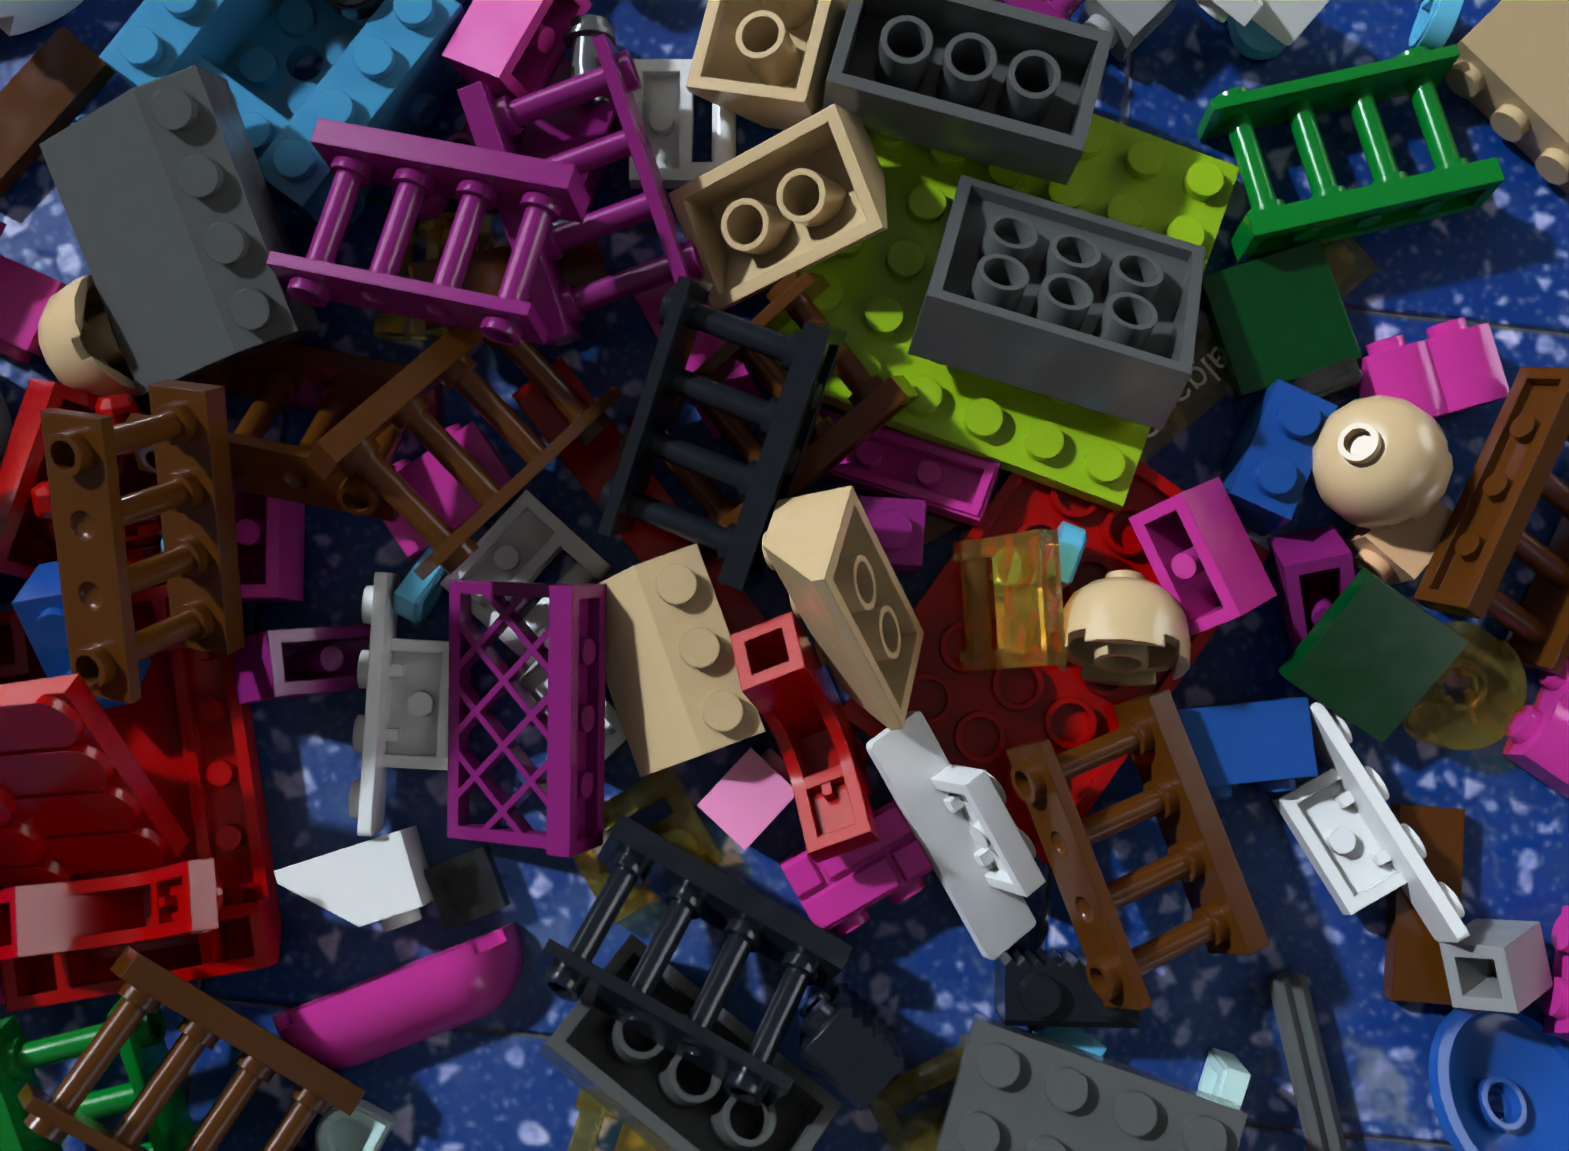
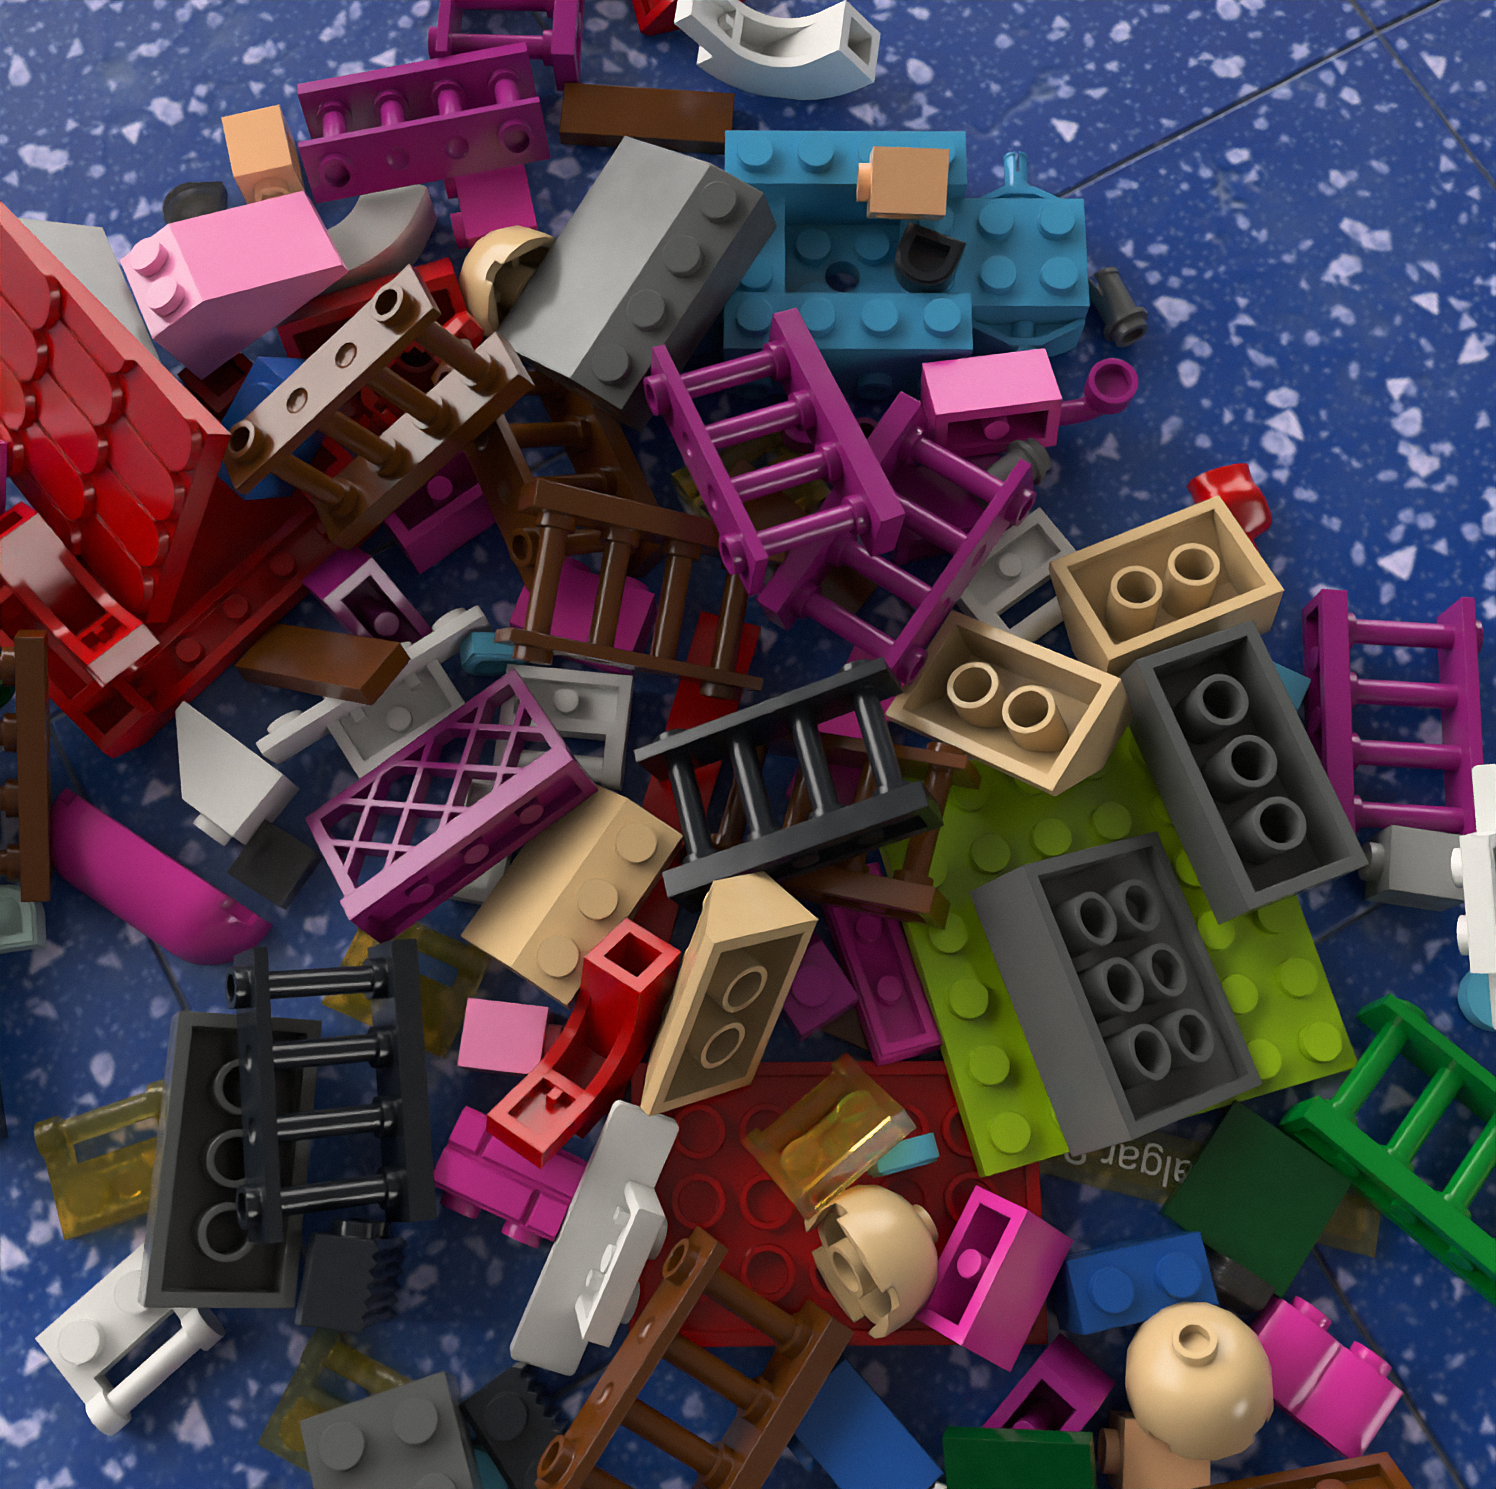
camera: 50 degrees right, 10 degrees down
(328, 733) = (323, 663): none -> reddish brown tile

